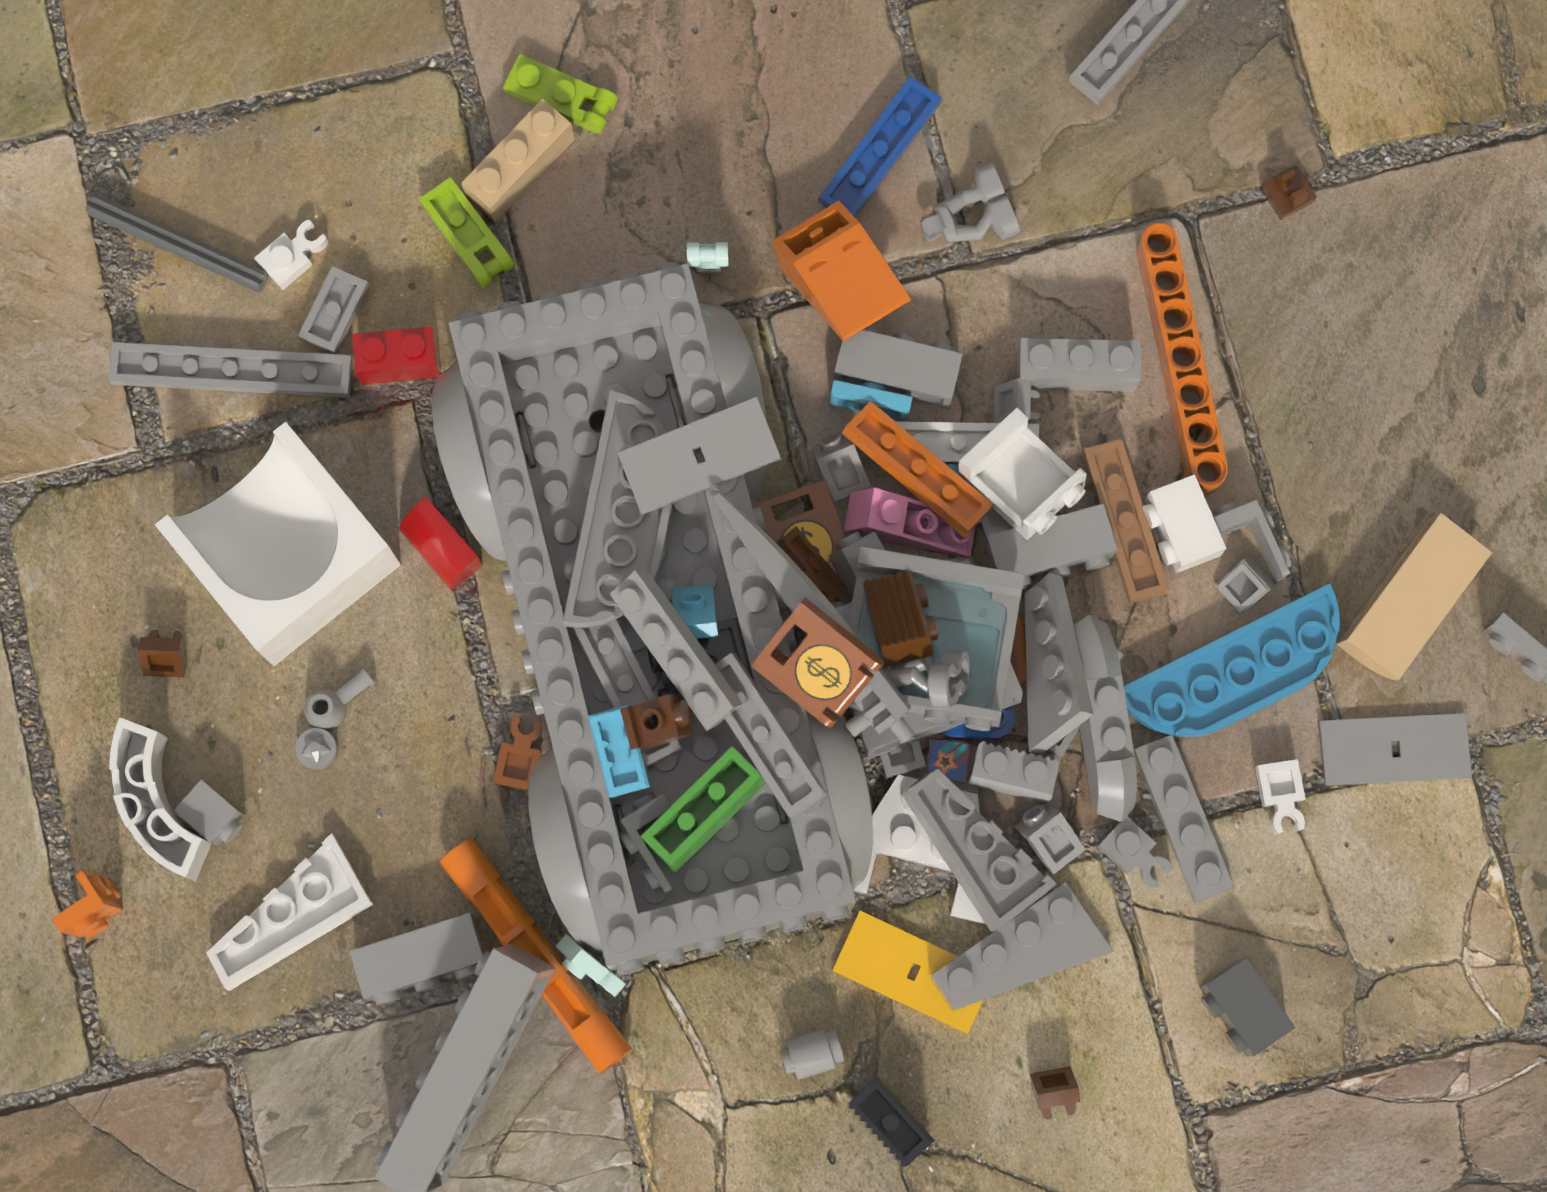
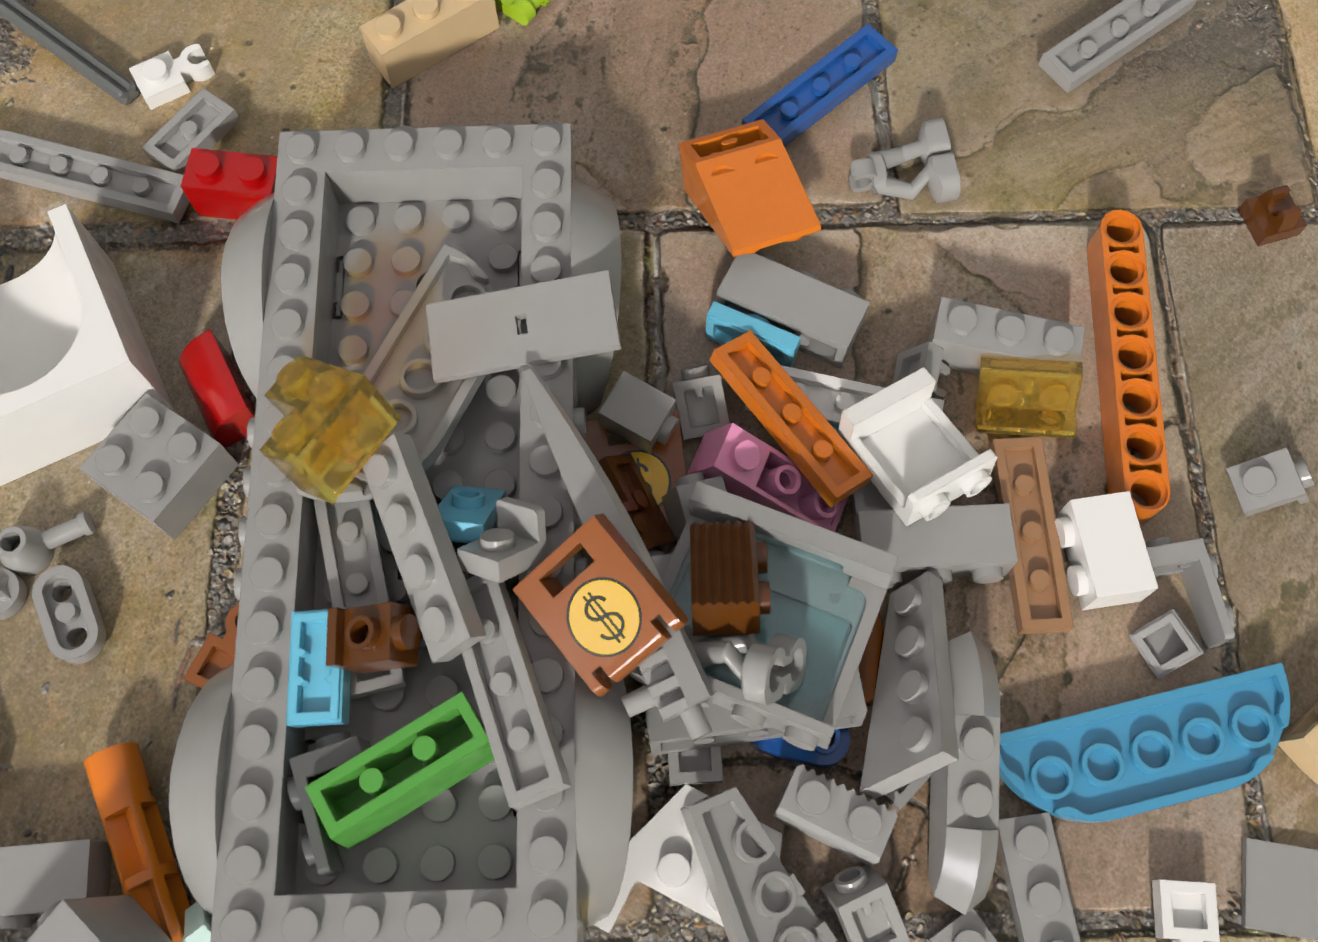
camera: 15 degrees right, 10 degrees down
(382, 753) = (68, 619): none -> light grey plate
(415, 618) = (159, 465): none -> light grey brick
(465, 231) = (355, 81): lime plate -> none
(586, 573) = (328, 425): none -> clear yellow brick
(708, 257) = (602, 141): light aqua plate -> none
(740, 634) = (510, 548): none -> light grey bracket
(797, 493) = (638, 413): none -> light grey brick
(949, 757) = (755, 778): tile -> none
(1105, 409) = (1028, 397): none -> clear yellow bracket
(1309, 436) = (1270, 481): none -> light grey bracket

